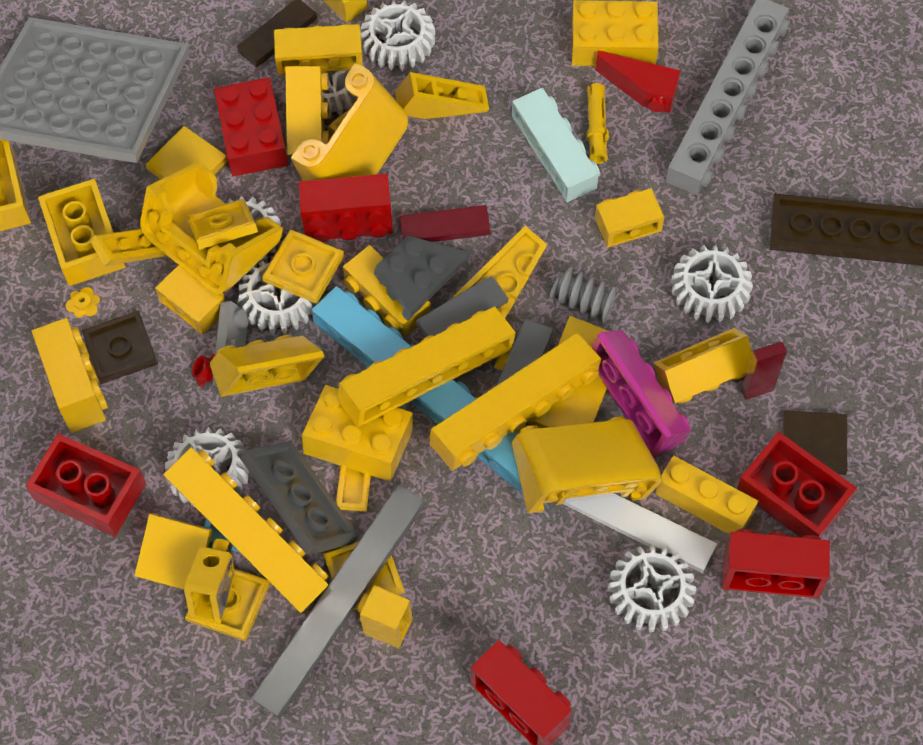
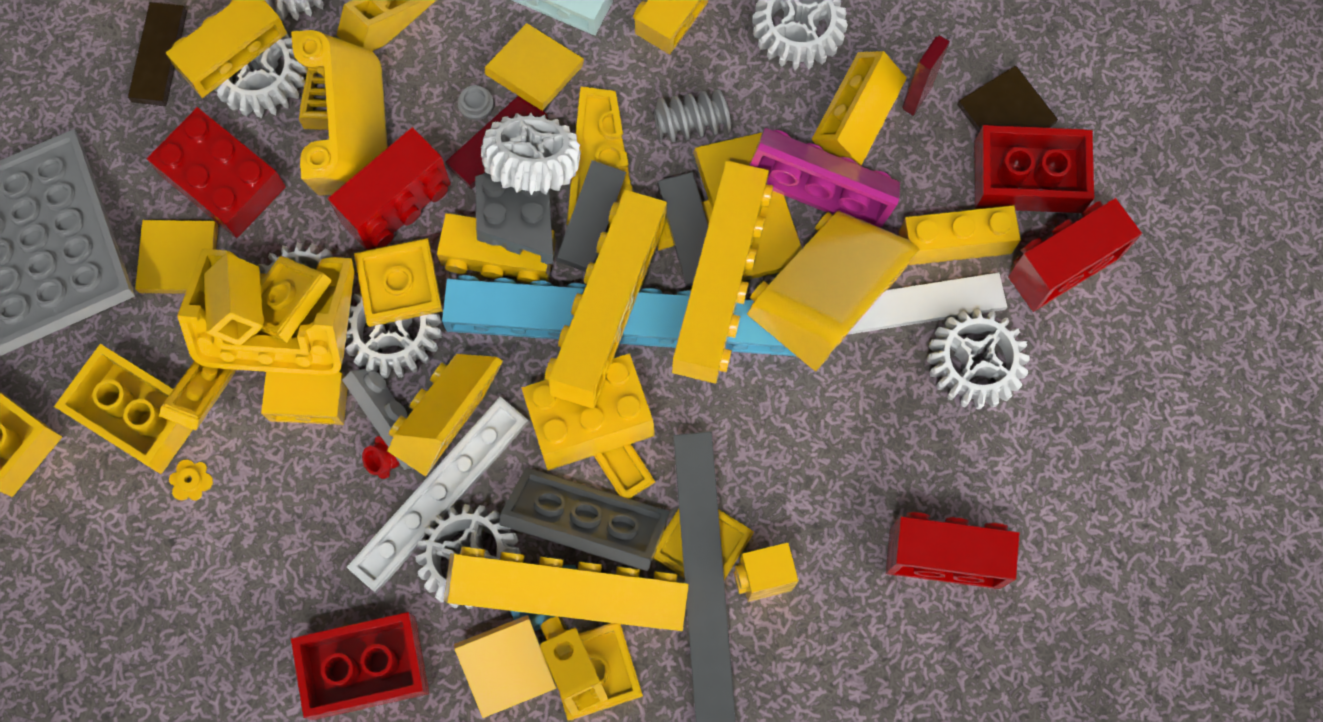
camera: 40 degrees left, 10 degrees up
(70, 374) = (248, 566): yellow brick -> none
(119, 347) = (269, 499): dark brown tile -> none
(189, 202) = (233, 300): none -> yellow brick
(229, 416) = (437, 493): none -> white tile
(305, 105) = (265, 115): yellow brick -> none
(450, 192) = (475, 103): none -> light grey plate
(453, 243) = (530, 153): none -> white gear
(507, 194) = (534, 66): none -> yellow tile

